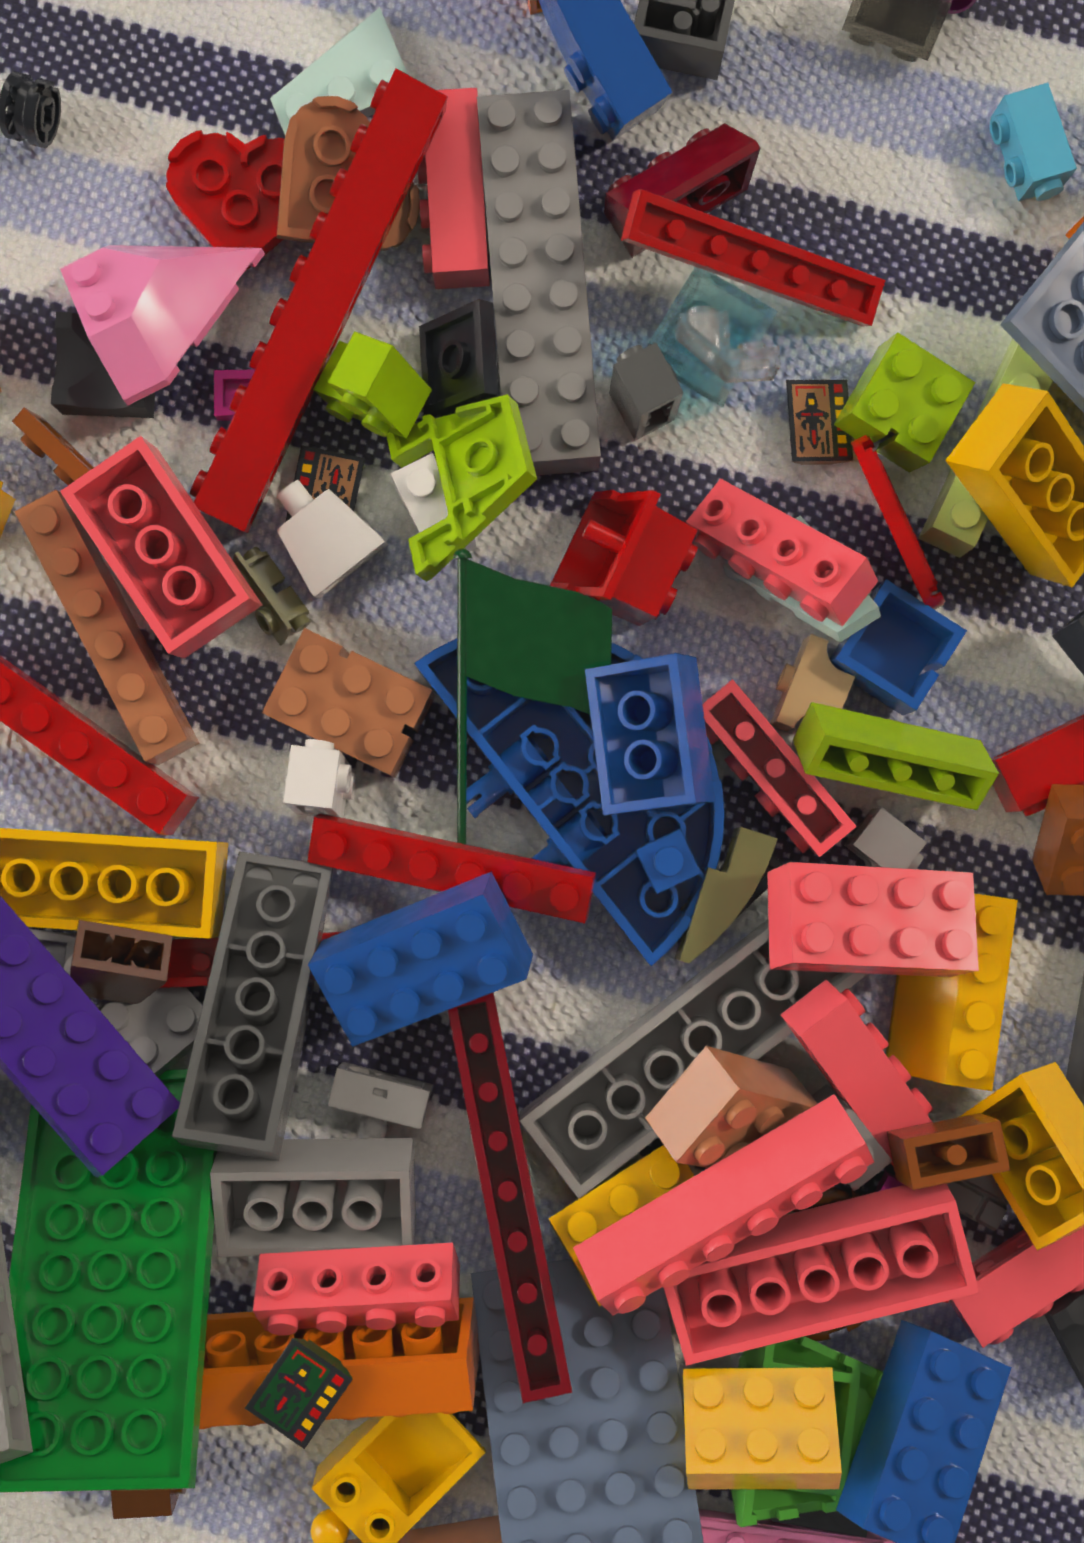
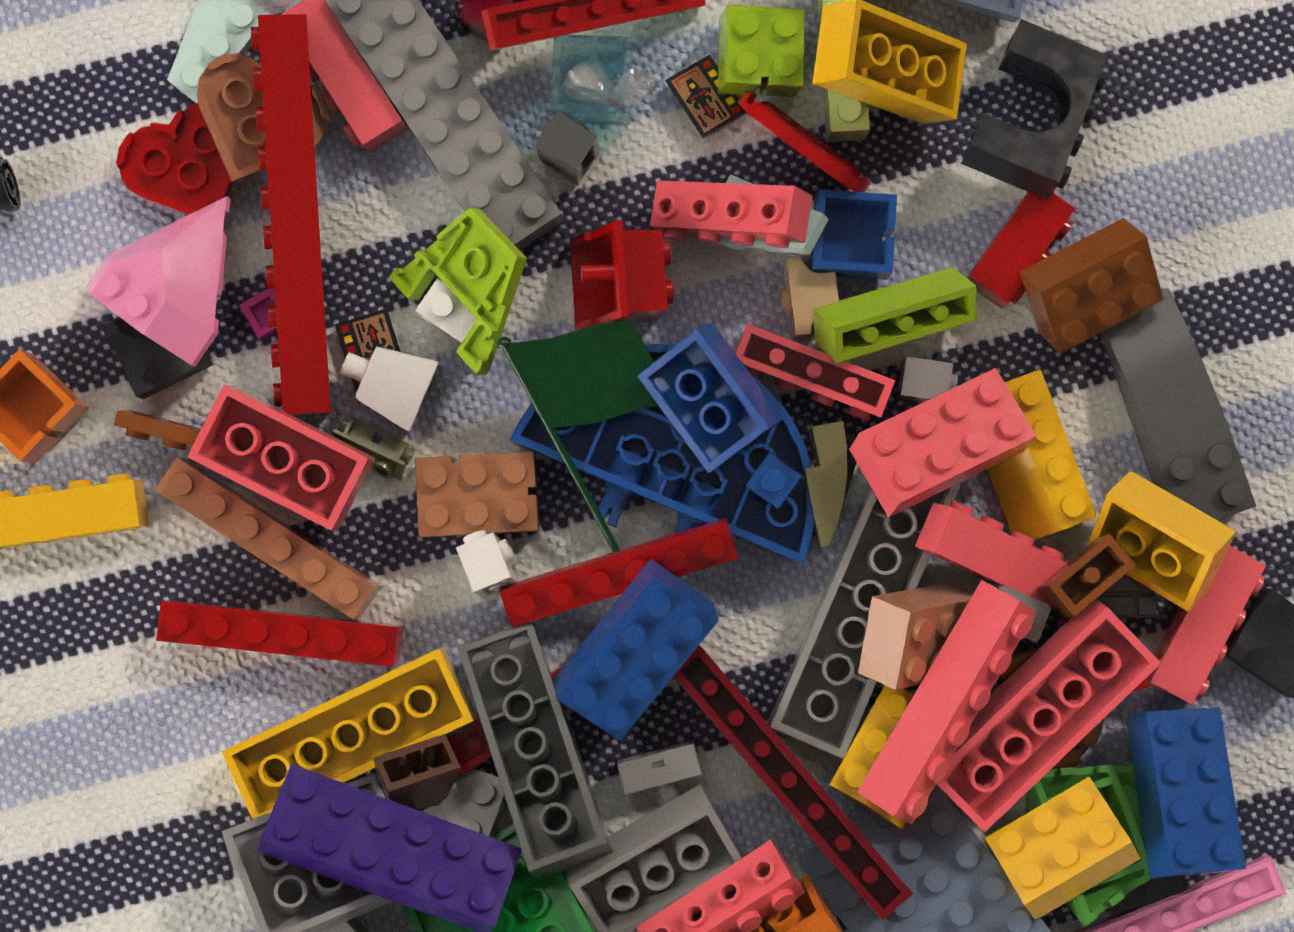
camera: 25 degrees left, 0 degrees up
(372, 385) = (365, 253): lime brick -> none
(459, 358) = (417, 198): black plate -> none

